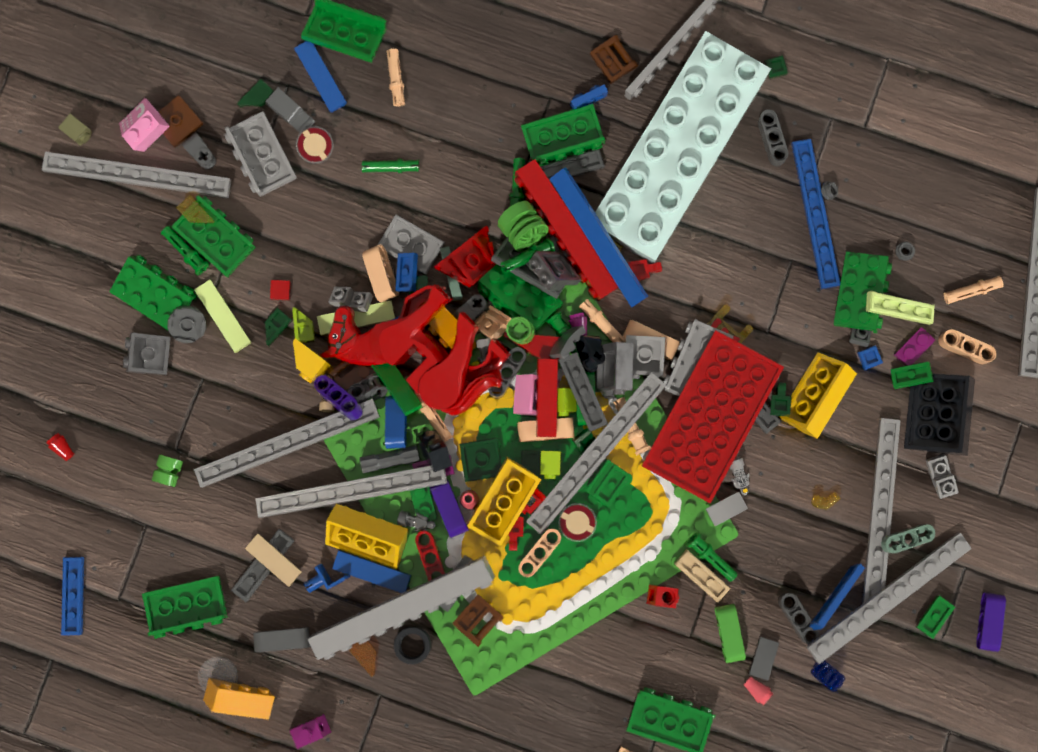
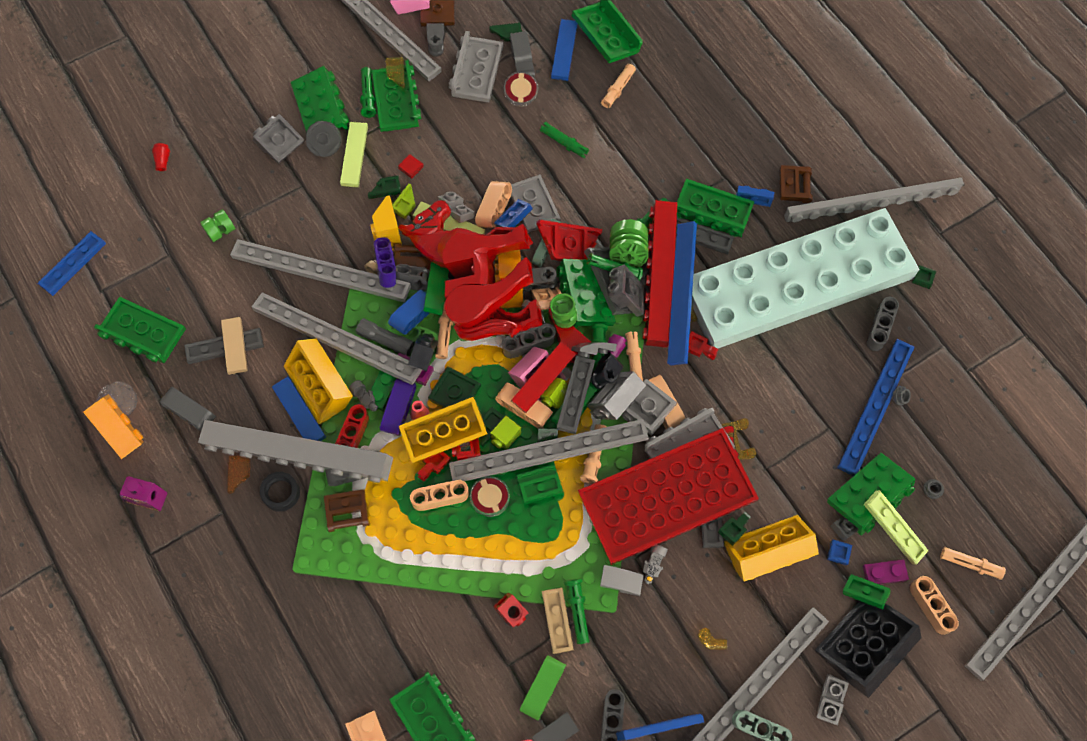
camera: 30 degrees right, 15 degrees down
(322, 579) = (258, 389): blue bracket -> none

